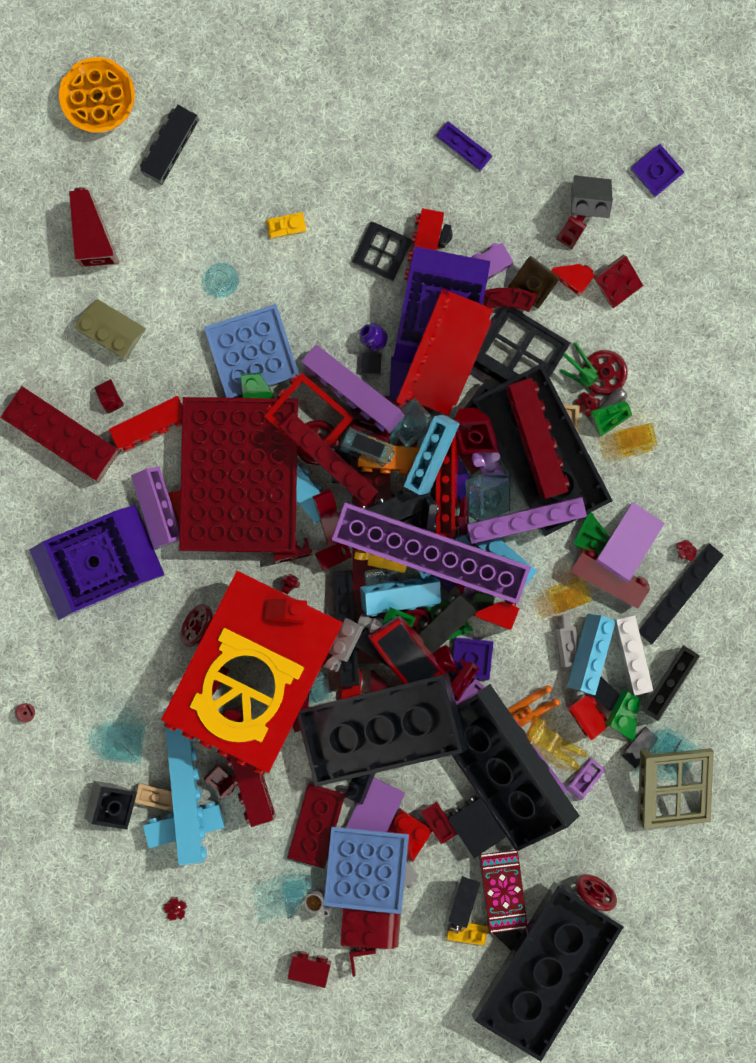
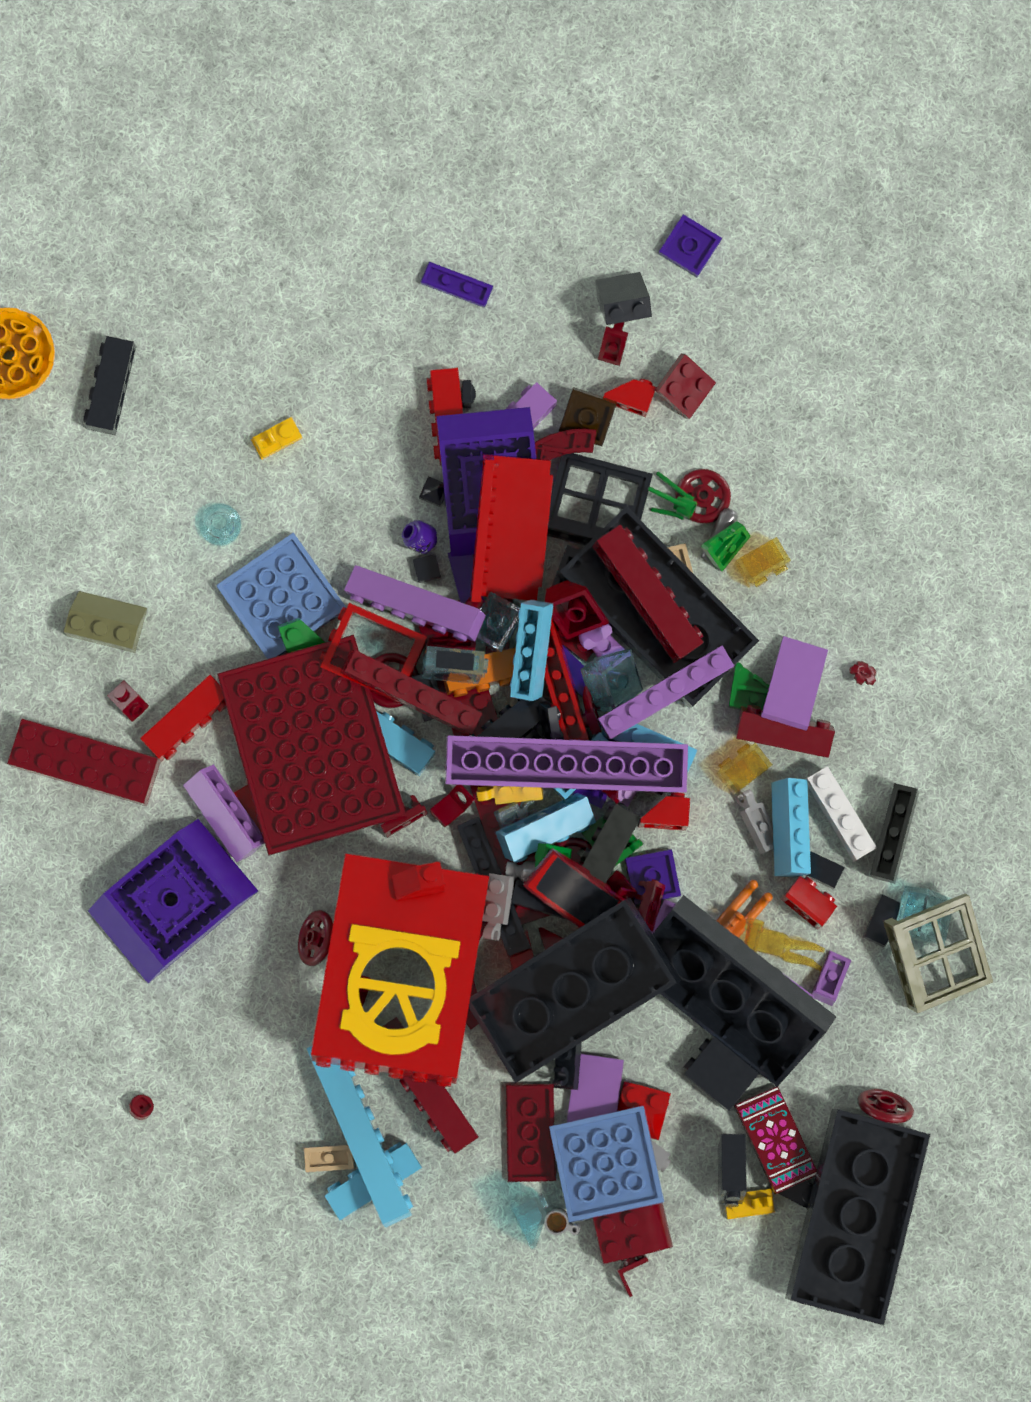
camera: 25 degrees left, 5 degrees down
(90, 235) = (50, 518): dark red slope -> none
(110, 805) = (277, 1184): black slope -> none
(123, 742) = (269, 1105): clear light blue slope -> none
(176, 909) = (393, 1286): dark red plant -> none
(220, 780) = (400, 1114): bracket -> none
(290, 582) = (410, 852): dark red plate -> none
(309, 969) = (576, 1306): dark red brick -> none
(320, 689) = (485, 968): clear light blue plate -> none
(327, 513) = (431, 760): dark red tile -> none
(394, 304) = (433, 492): none -> black tile
(397, 258) = (419, 436): black piece -> none
(438, 822) = (674, 1082): dark red plate -> none
(484, 598) = (644, 801): bright green tile -> none
(584, 406) = (692, 542): dark red plant -> none
(625, 715) = (853, 887): green wing -> none
(680, 593) = (872, 726): black plate -> none

